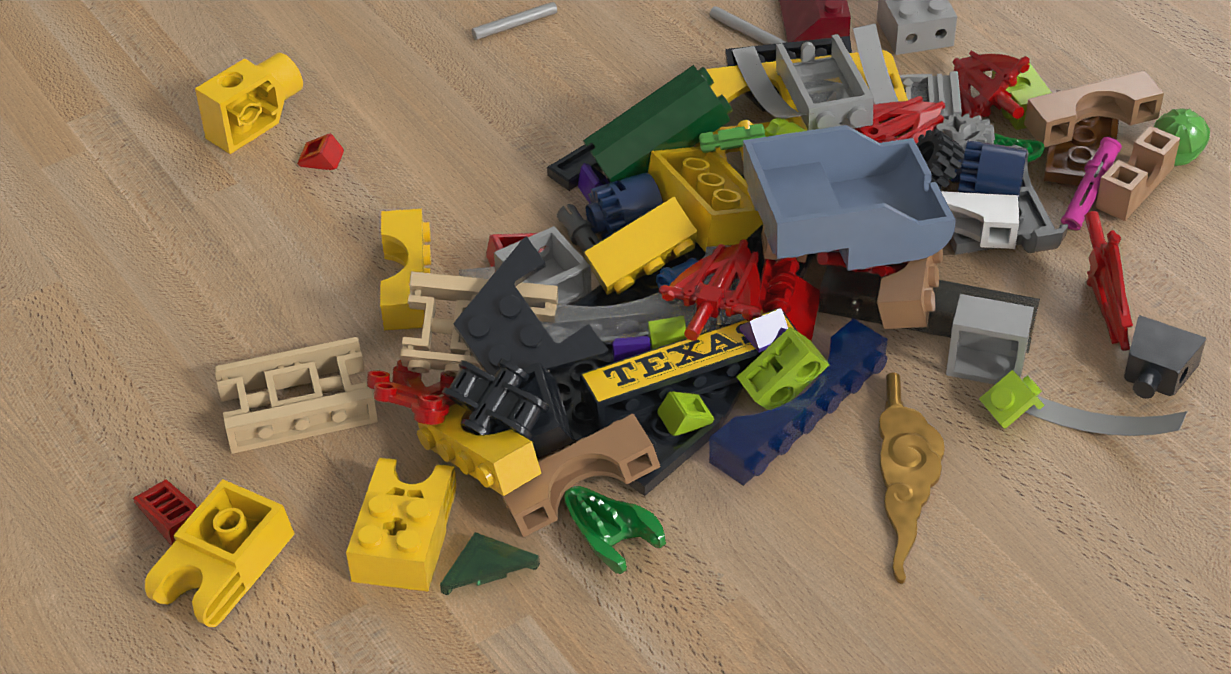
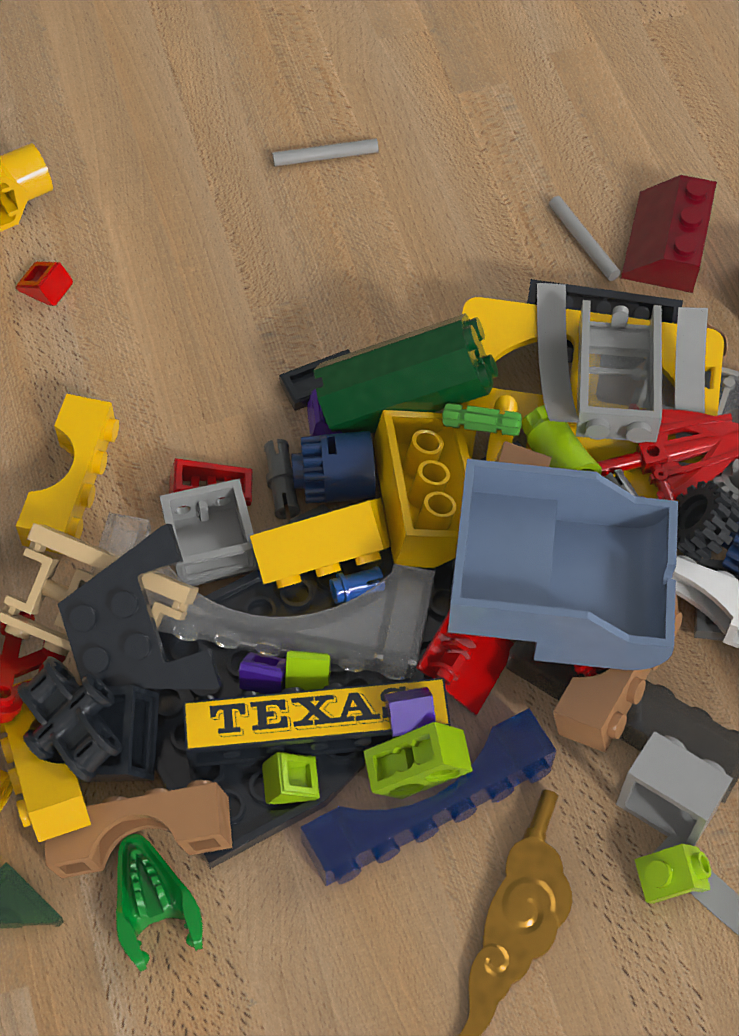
camera: 15 degrees right, 15 degrees up
(716, 296) = (406, 599): red bar -> none

